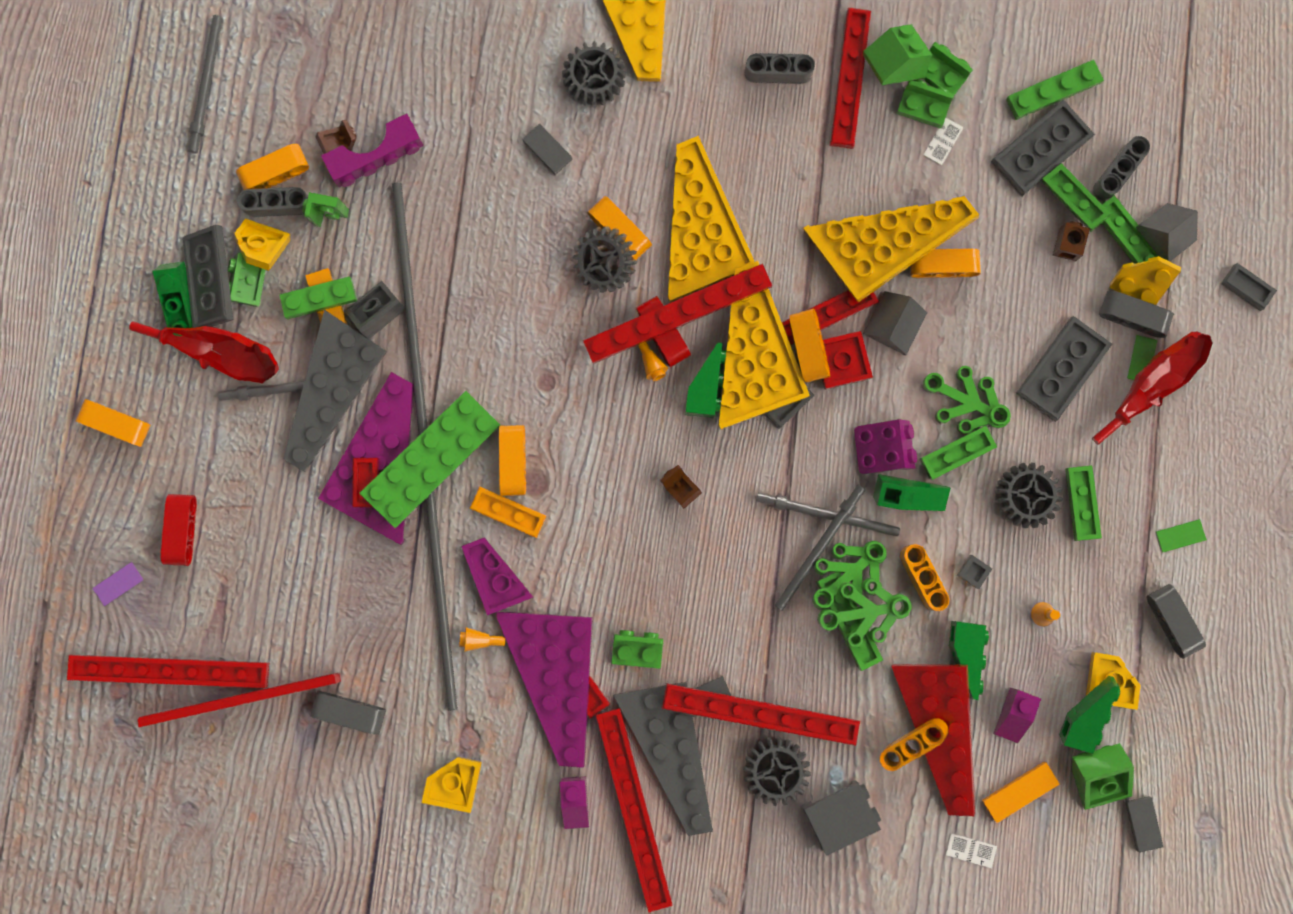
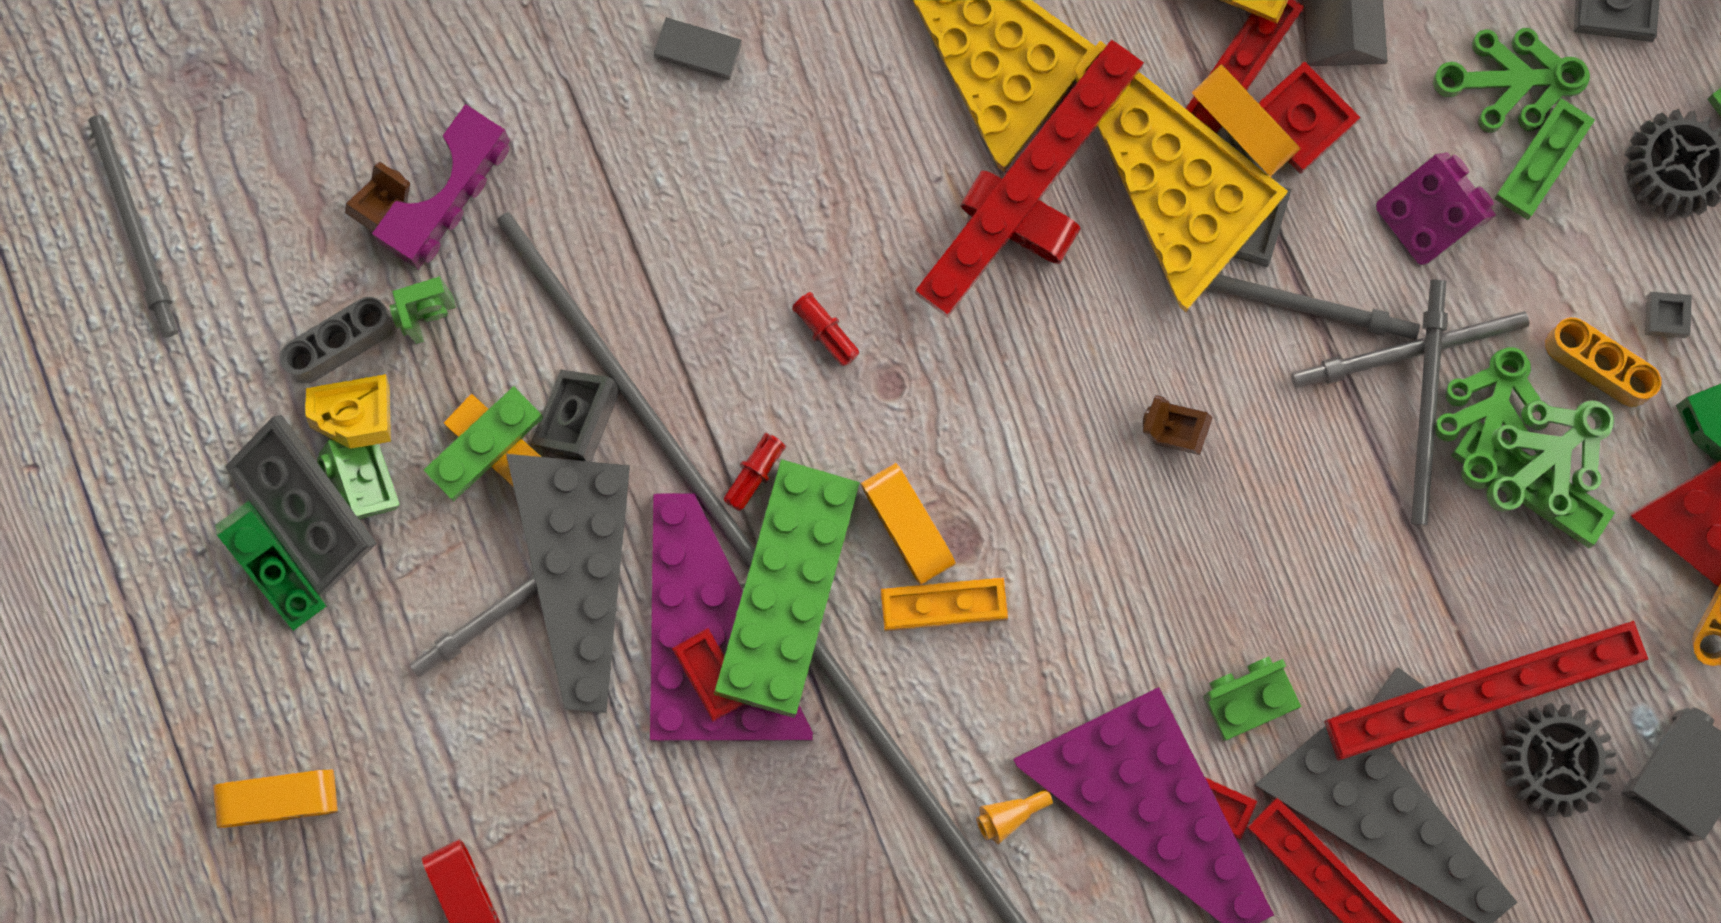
camera: 25 degrees left, 5 degrees down
(239, 355) = (408, 591): red piece -> none
(273, 168) = (306, 292): light orange beam -> none
(449, 389) = (754, 471): none -> red axle
(493, 577) = (981, 713): magenta wing -> none
(528, 335) = (825, 329): none -> red axle
(593, 245) = (861, 150): dark grey gear -> none
(608, 214) = (870, 104): light orange beam -> none
(653, 366) = (1034, 274): light orange cone -> none
(702, 392) = (1129, 271): green slope -> none
(818, 489) = (1376, 321): none -> dark grey bar
(910, 494) = (1511, 254): green slope -> none

